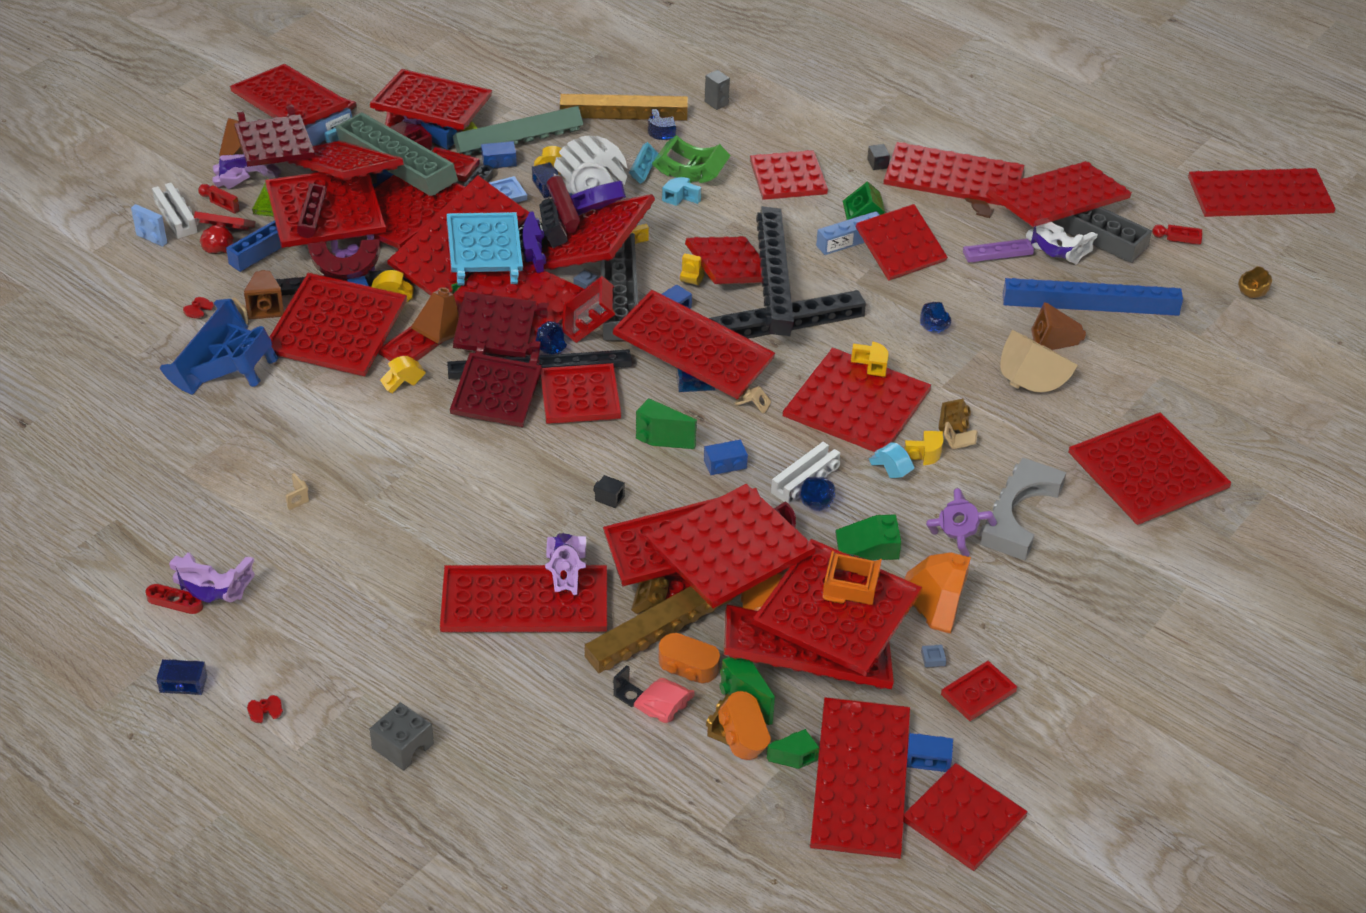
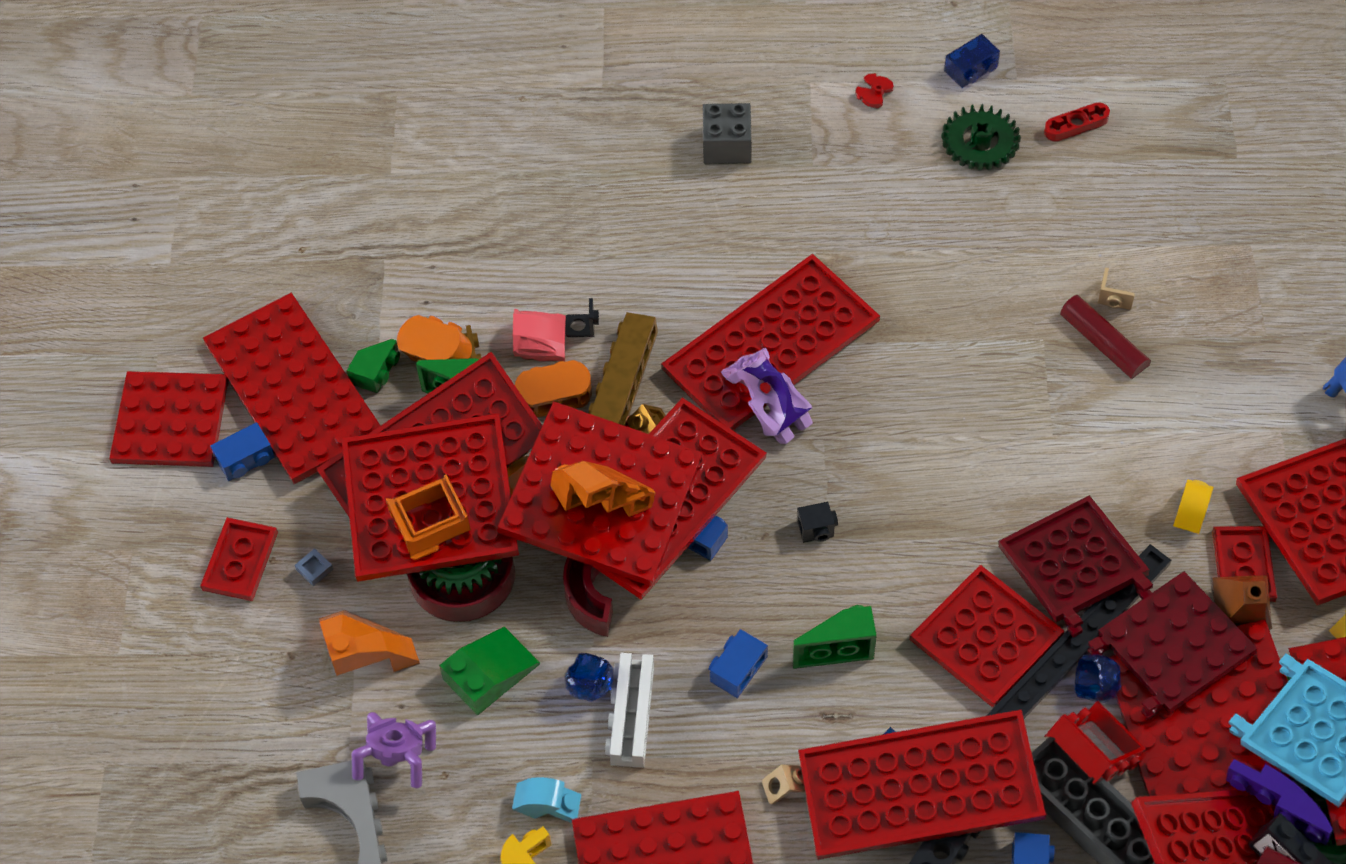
camera: 145 degrees right, 15 degrees up
(197, 579) = (1065, 140): lavender hips -> none
(240, 623) = (983, 127): none -> dark green gear
(332, 477) = (1104, 336): none -> dark red brick
(739, 513) = (594, 483): none -> orange brick

